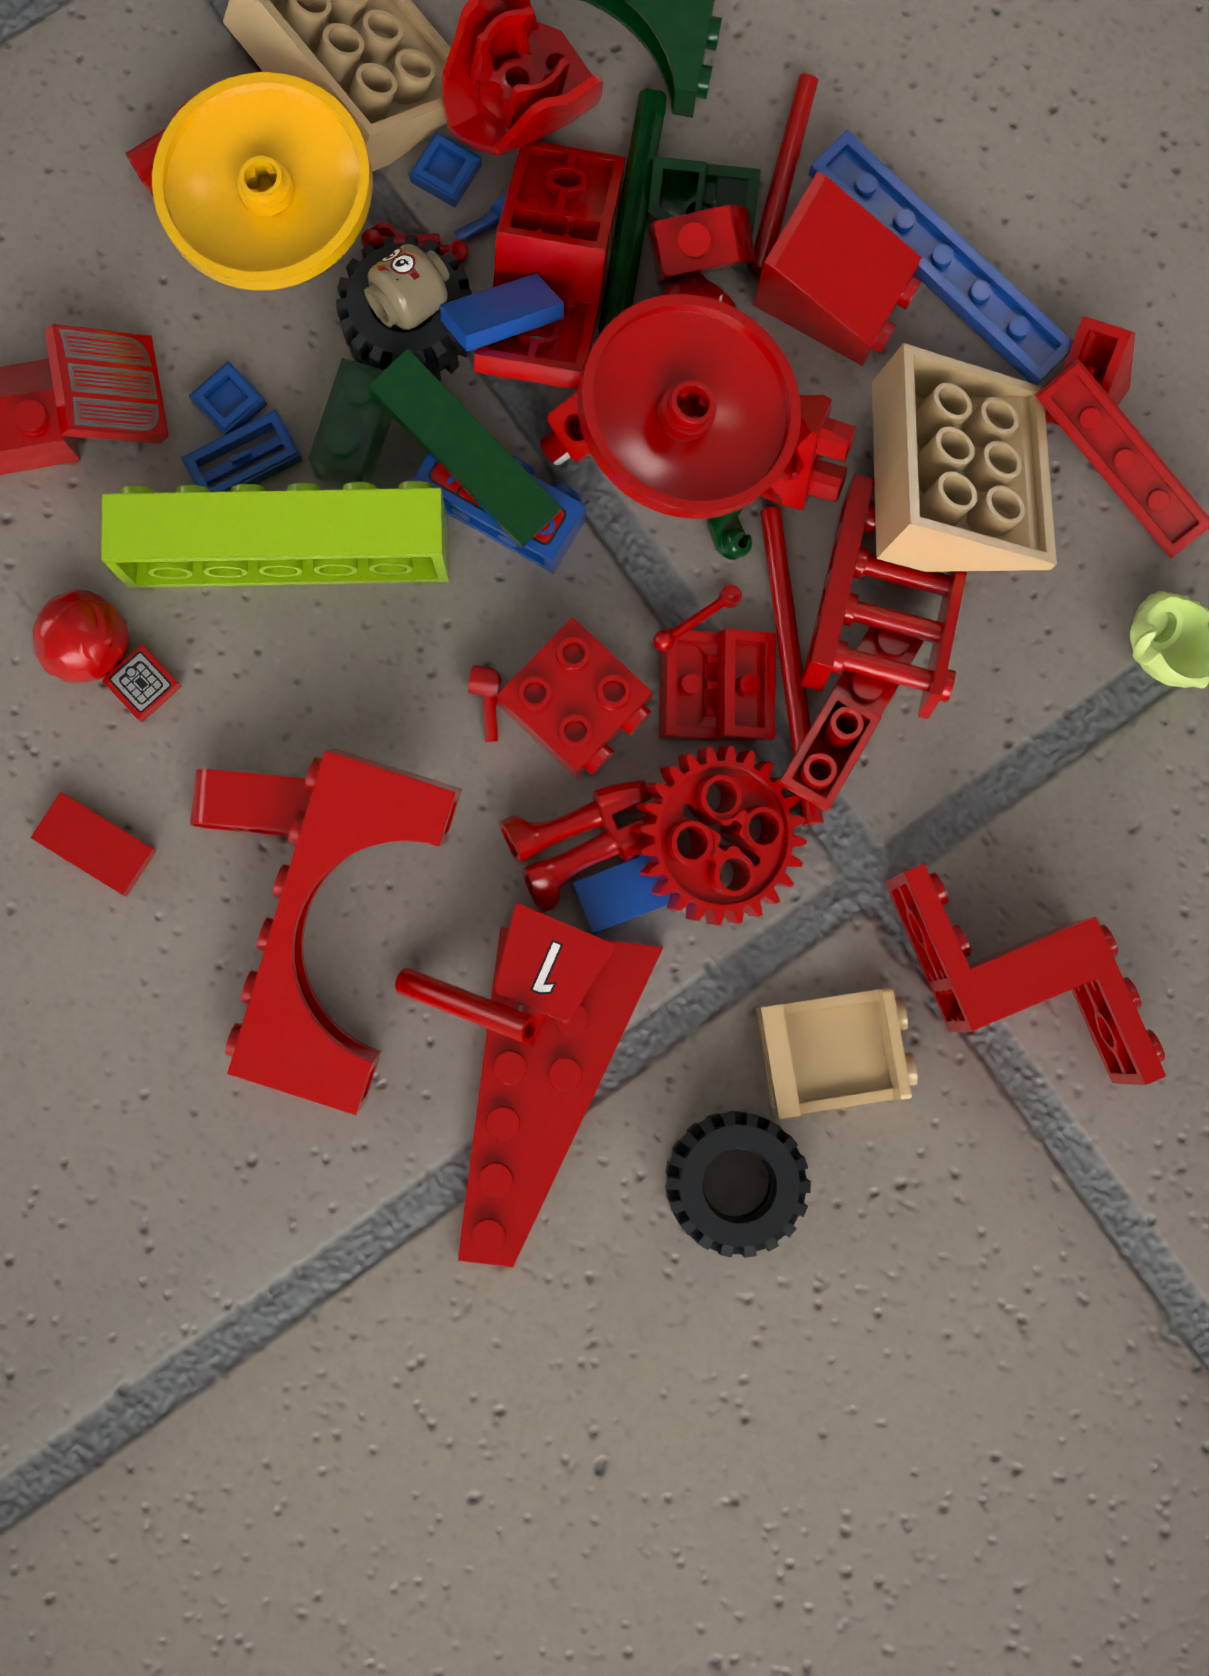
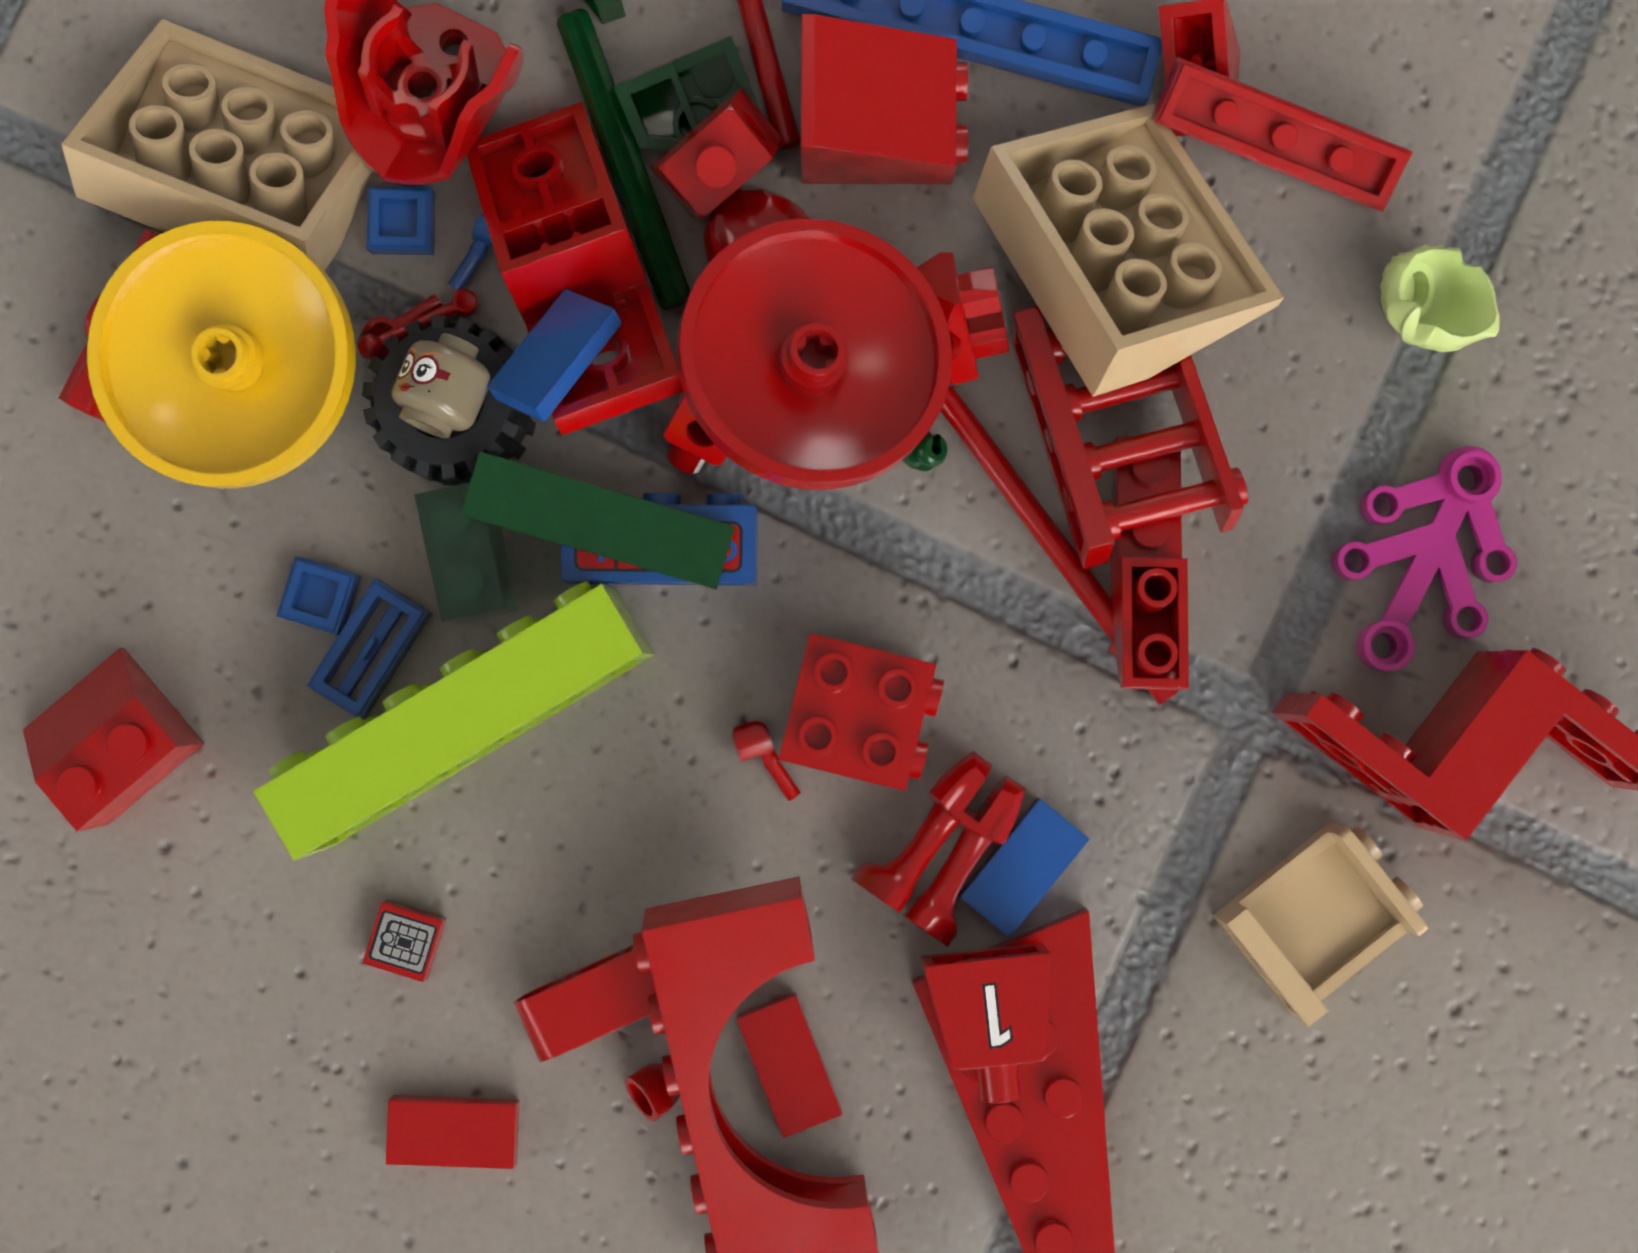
camera: 20 degrees left, 5 degrees up
(79, 636) = (314, 930): red hair -> none
(106, 384) = (184, 658): red tile -> none
(257, 897) = (649, 1091): none -> red hinge
(373, 936) = (789, 1064): none -> red tile
(467, 1005) = (931, 1092): red piece -> none
(696, 877) = (1082, 828): red gear -> none
(718, 686) = (991, 609): red slope -> none
(728, 598) = (951, 510): red hinge -> none
(776, 1212) = (1335, 1148): black tyre -> none
(1072, 825) = (1433, 551): none -> dark pink plant

